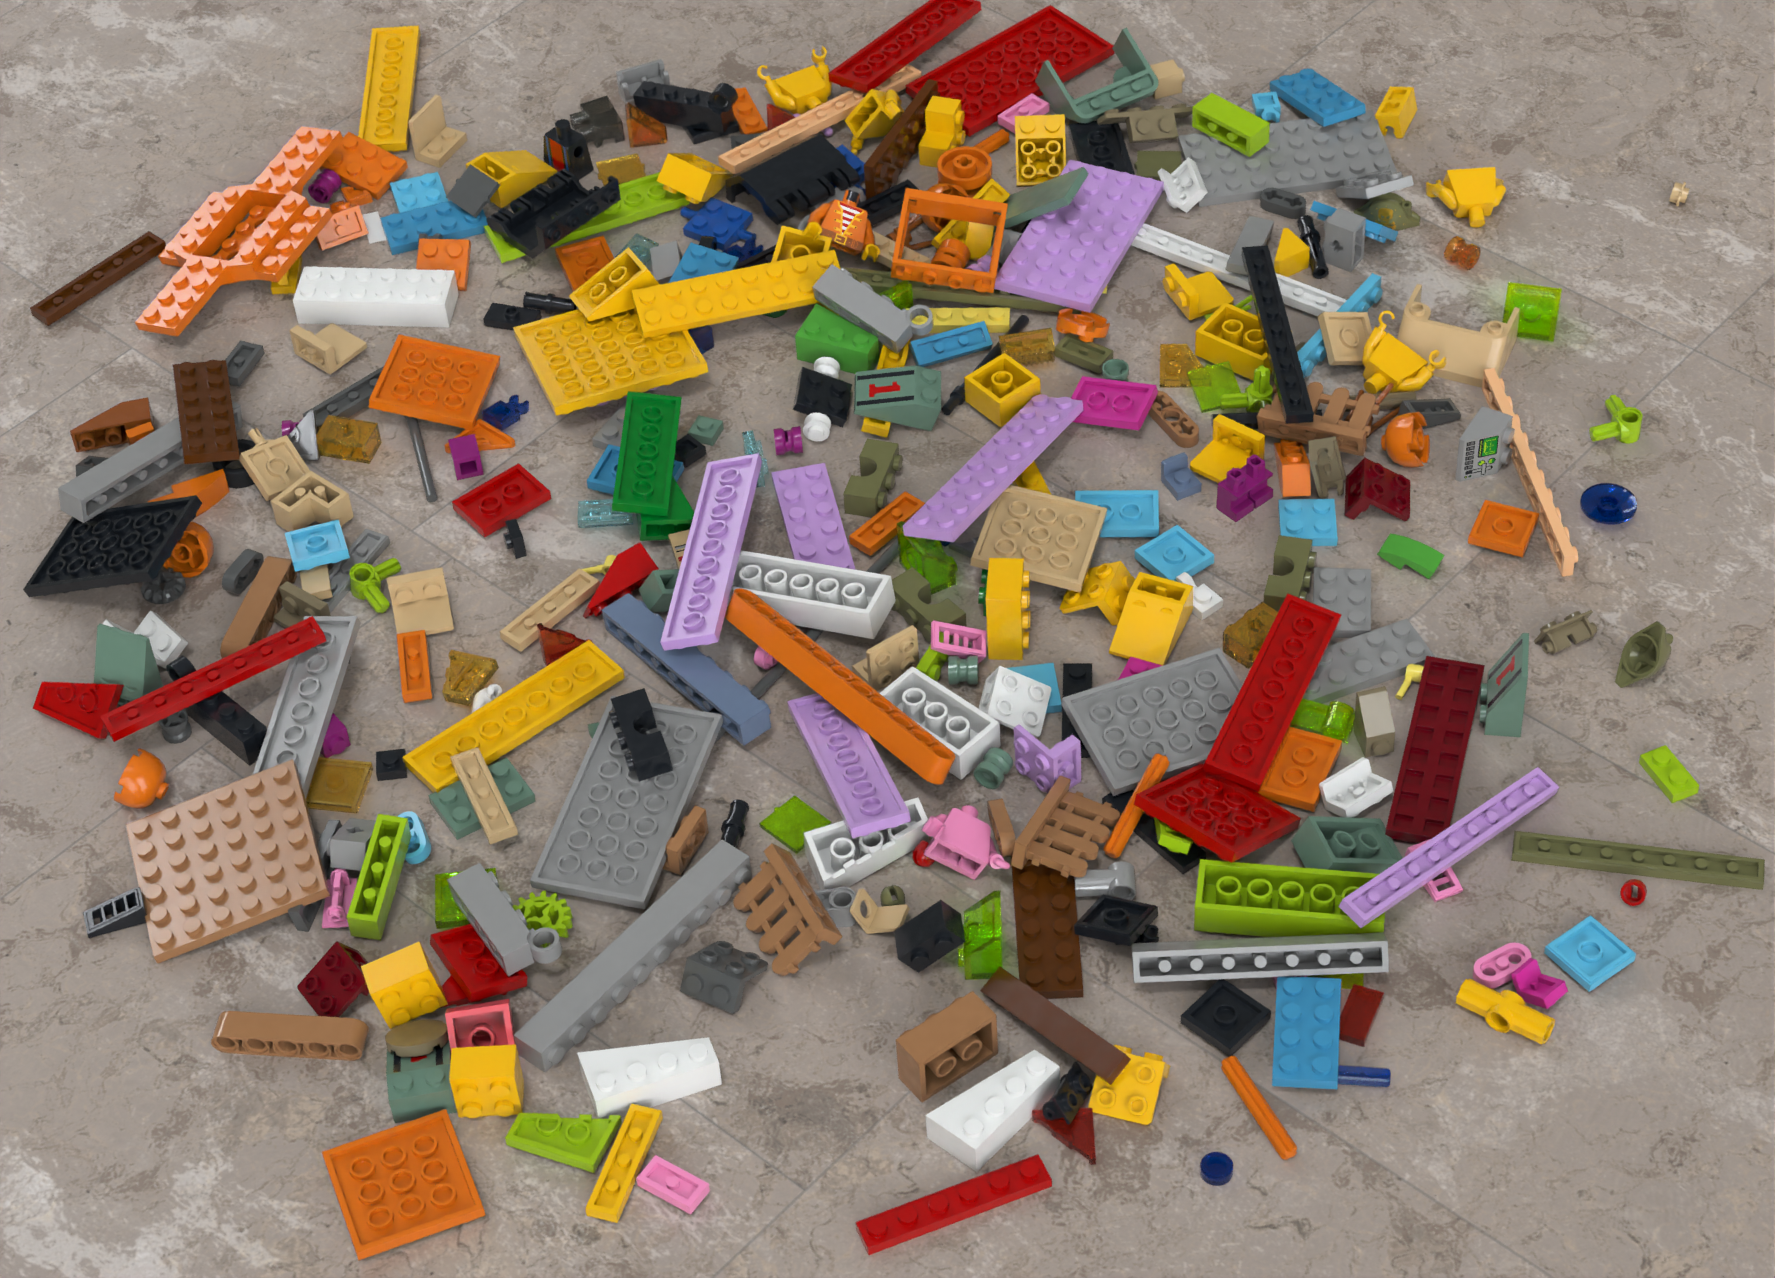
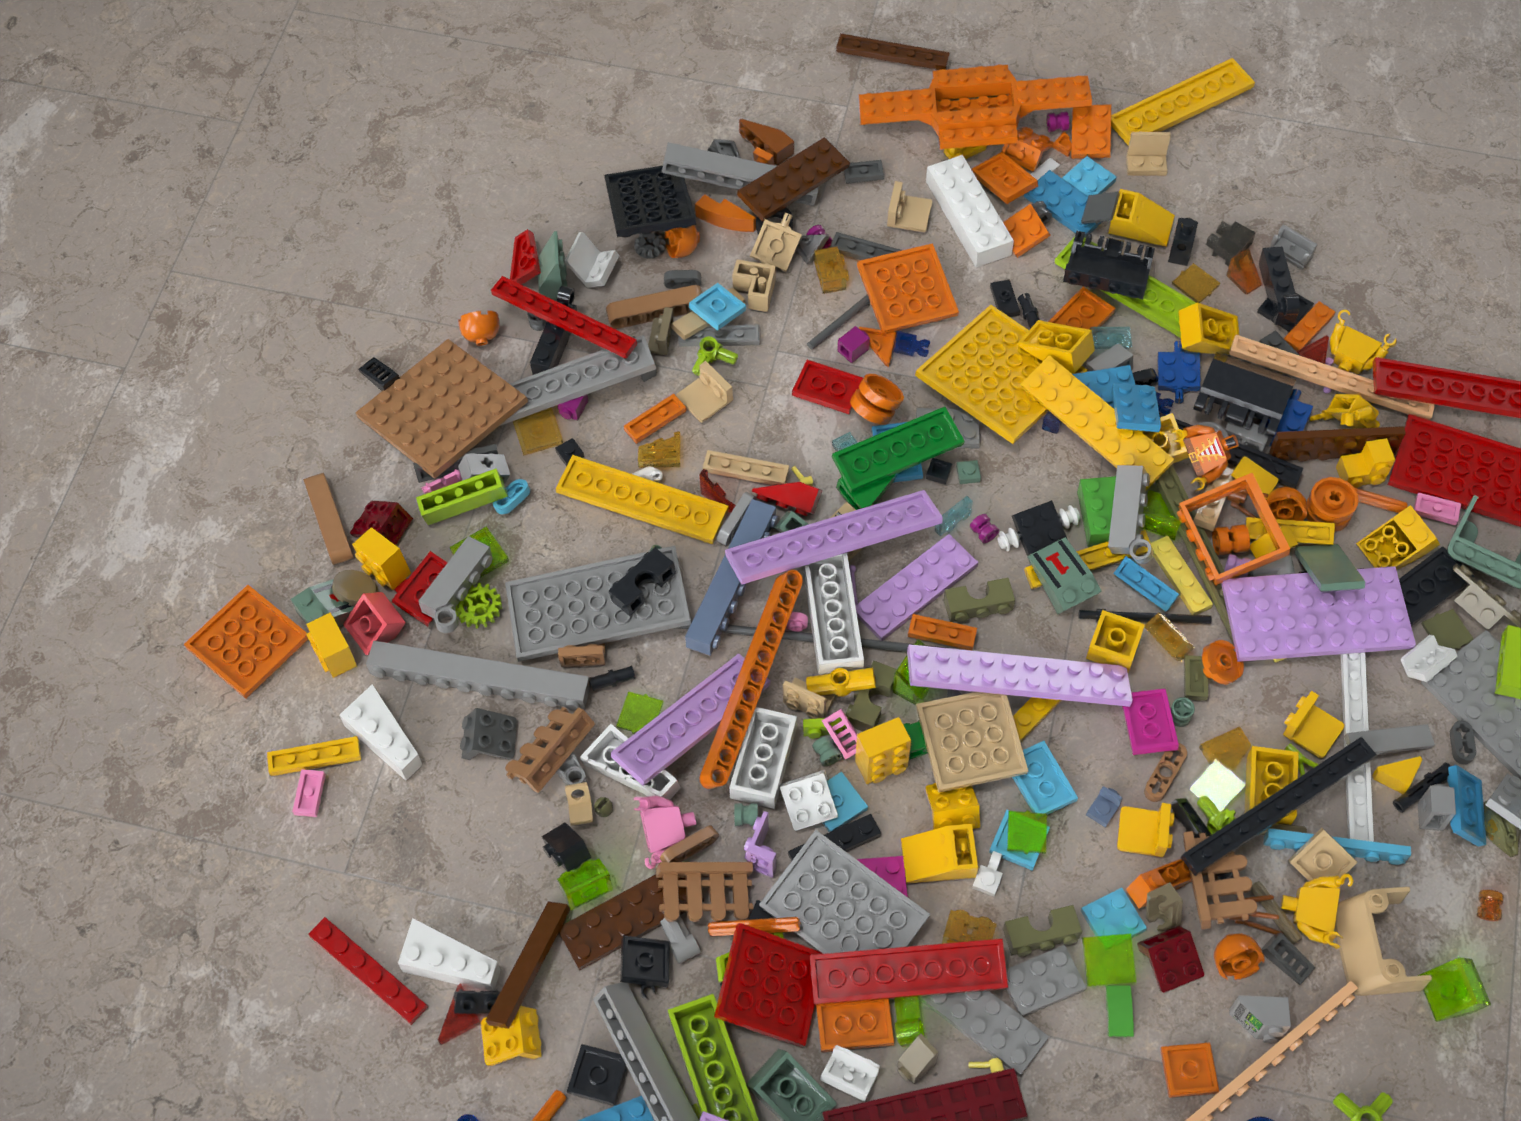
camera: 60 degrees right, 15 degrees up
(364, 249) = (1004, 177): none -> orange plate
(457, 811) = (567, 518): sand green plate -> none
(484, 795) = (560, 518): tan tile -> none
(514, 539) = (795, 413): black plate -> none
(562, 456) = (877, 399): none -> orange wheel
(571, 1141) = (318, 712): lime wing -> none
(610, 640) = (732, 523): none -> light grey beam
(751, 250) = (1136, 407): none -> dark azure plate
(886, 216) = (1264, 479): none -> yellow slope
(897, 609) = (853, 681): none -> yellow piece
(947, 1046) = (478, 903): medium nougat brick -> none
(1172, 542) = (1027, 832): none -> clear neon green piece
(1244, 489) = (1111, 853): magenta hips -> none
(1352, 538) = (1109, 959): none -> clear neon green plate

